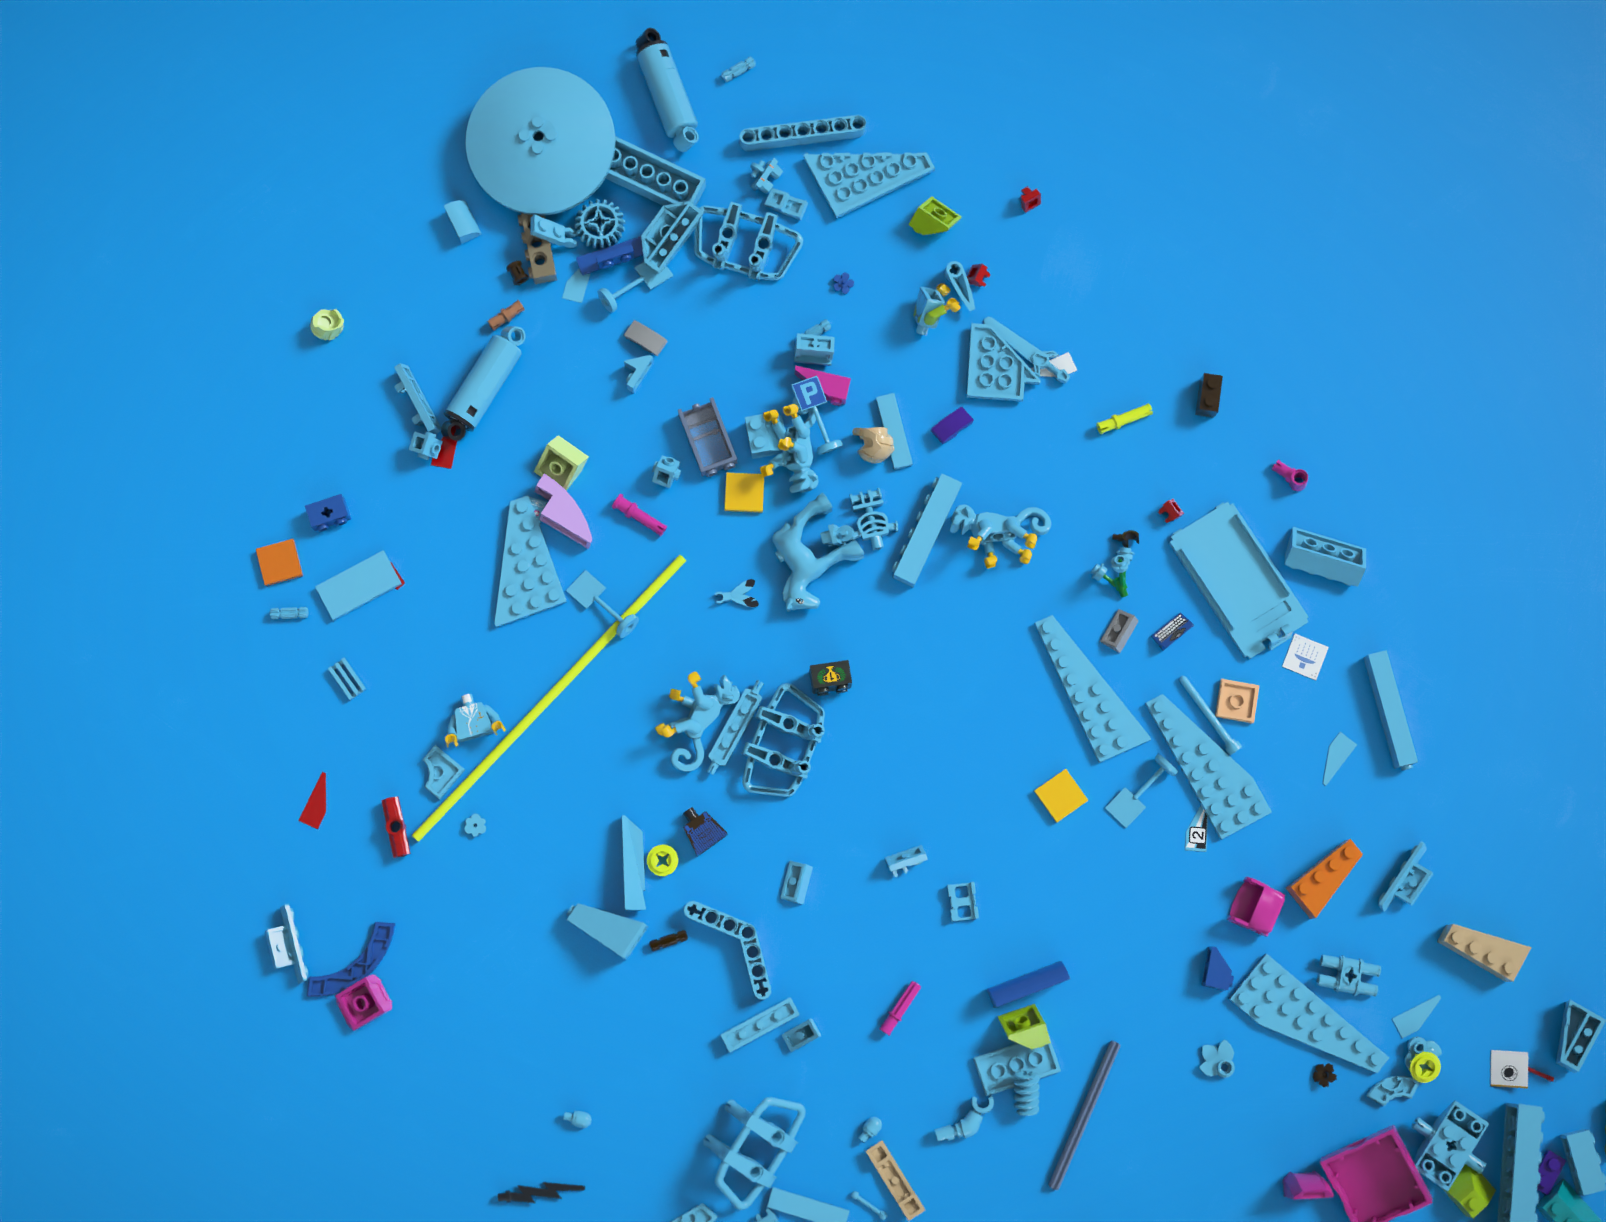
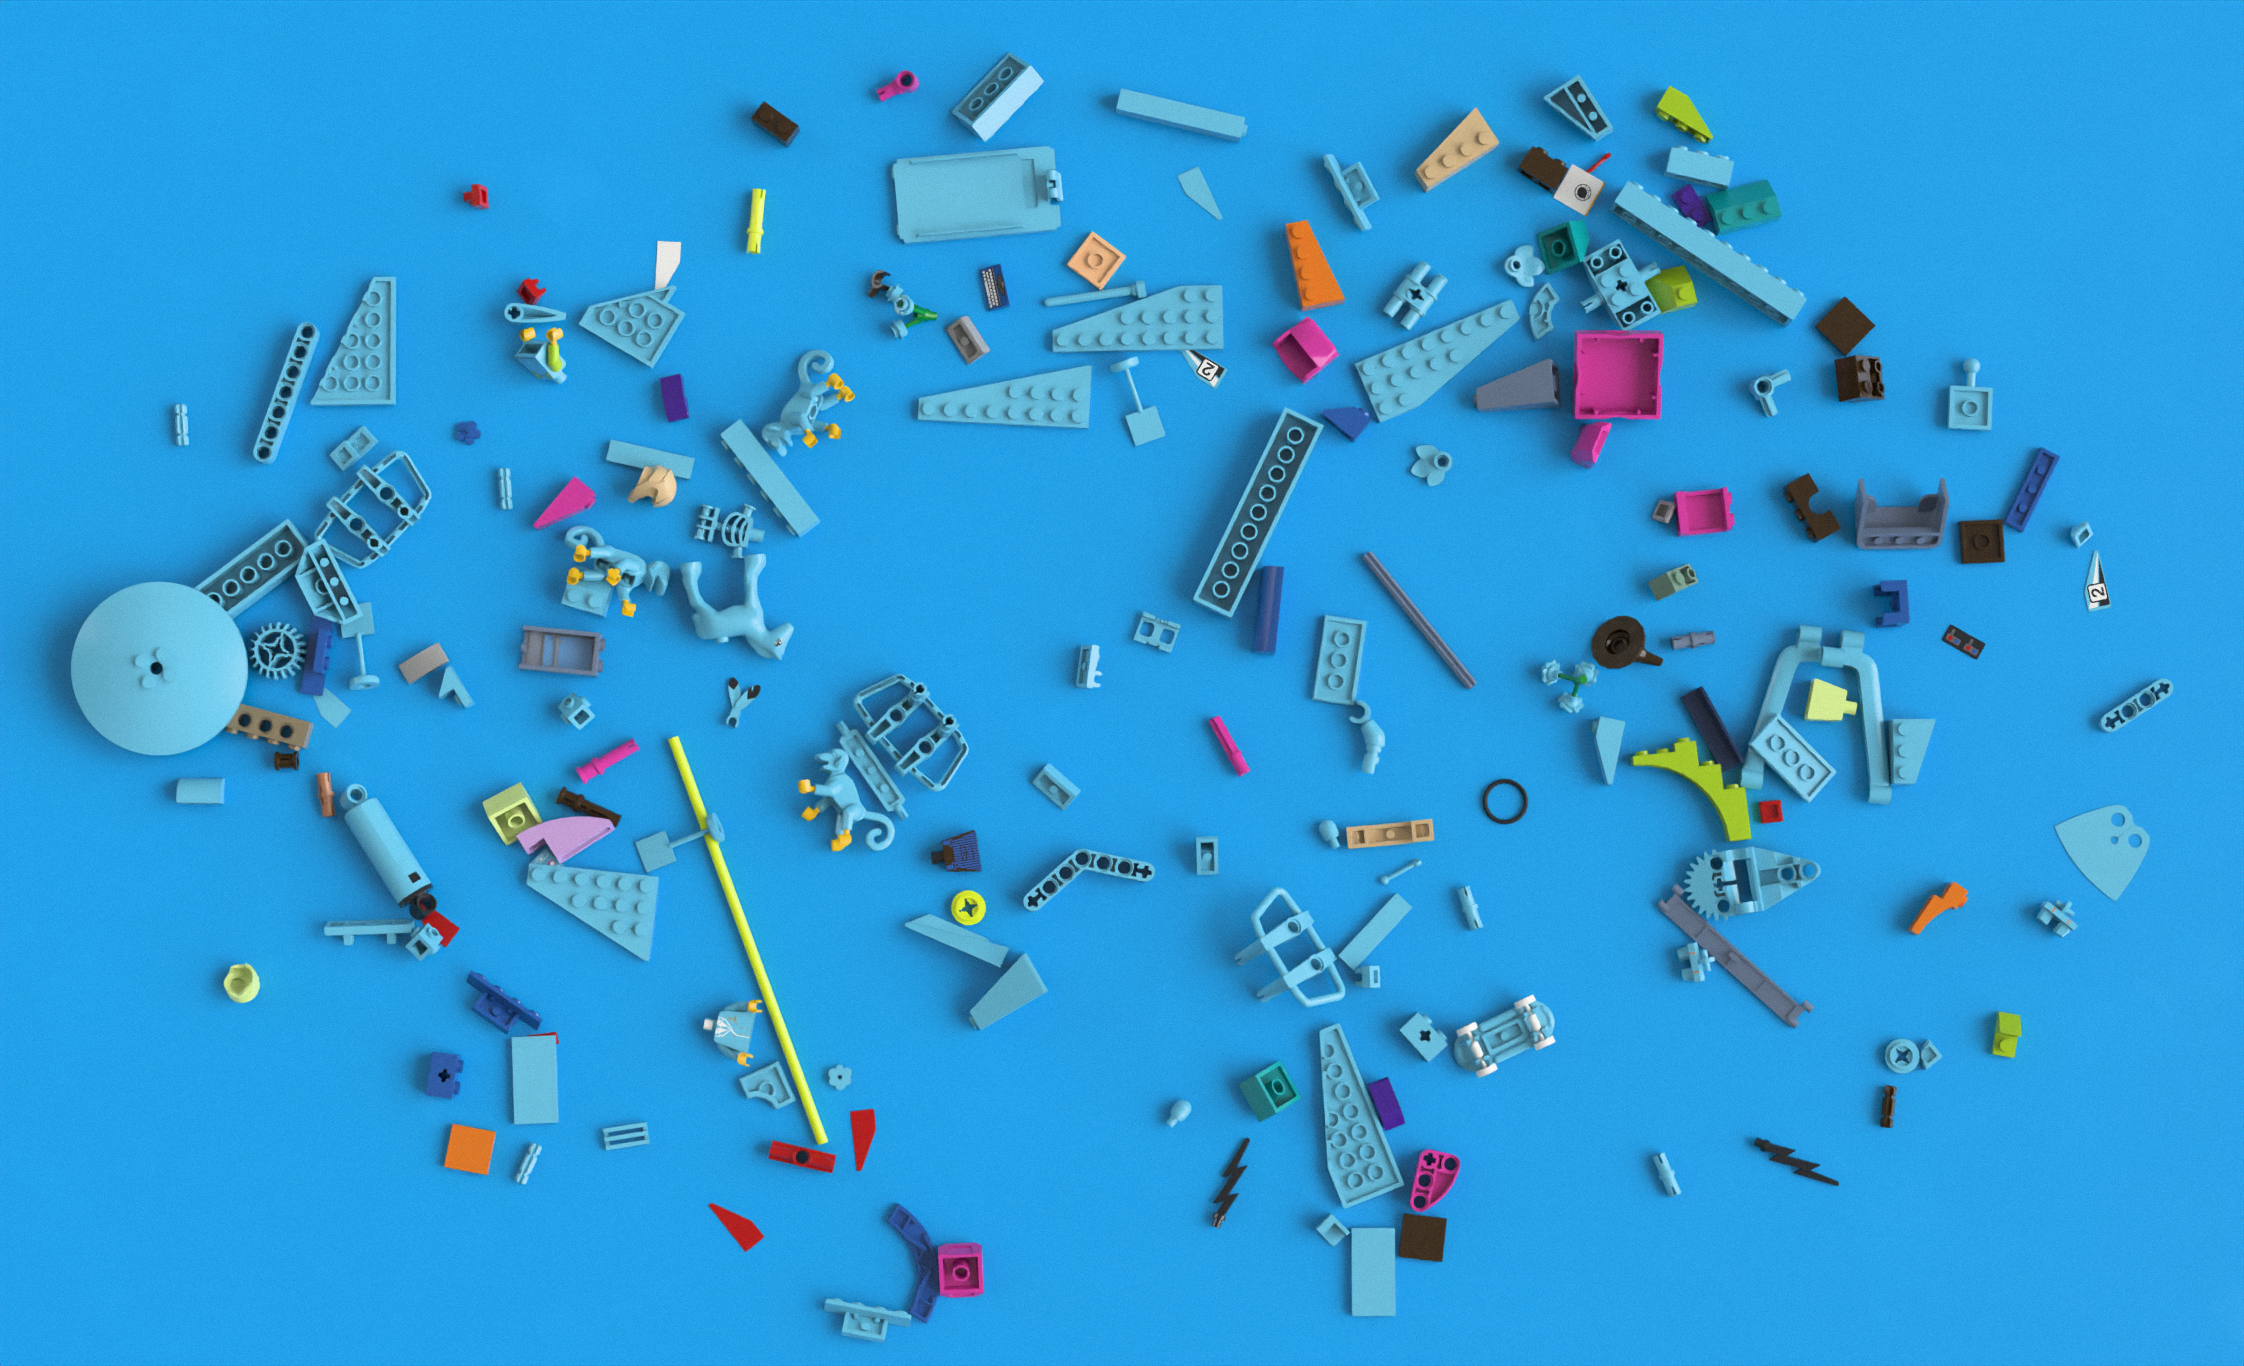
camera: 65 degrees left, 5 degrees up
(401, 529) = (500, 1008): none -> blue bracket
(438, 867) = (863, 1132): none -> red sticker
(552, 232) = (262, 703): medium azure hinge -> none
(594, 510) = (579, 803): none -> dark brown pin
(632, 1186) = (1269, 1091): none -> teal slope
(667, 89) = (167, 510): medium azure piece -> none
(668, 940) = (1050, 940): dark brown axle -> none
(744, 492) = (637, 642): yellow tile -> none
(760, 1024) = (1177, 890): medium azure gear -> none
(770, 169) = (309, 455): medium azure hips -> none
(809, 395) = (571, 527): piece -> none
(814, 349) = (525, 497): medium azure hinge -> none
(830, 677) = (871, 650): pearl dark grey brick -> none
(837, 535) = (730, 571): medium azure hips -> none
(933, 217) = (448, 304): lime slope -> none
(1025, 1027) = (1308, 633): lime slope -> none
(1027, 1092) = (1371, 664): medium azure piece -> none
(1038, 358) = (648, 275): medium azure sword -> none
(1061, 795) = (1102, 483): yellow tile -> none
(1102, 935) = (1257, 513): none -> medium azure brick
(1172, 509) = (872, 222): red tile -> none
(1305, 656) = (1086, 170): white sticker -> none
(1320, 1106) = (1526, 389): none -> sand blue slope
(1324, 1074) = (1496, 369): dark brown plant -> none
(1414, 1018) = (1487, 256): medium azure sticker -> none
(1426, 1075) = (1545, 271): neon yellow gear -> none
(1459, 1079) = (1563, 245): none -> teal slope
(1510, 1029) = (1542, 169): none -> dark brown brick

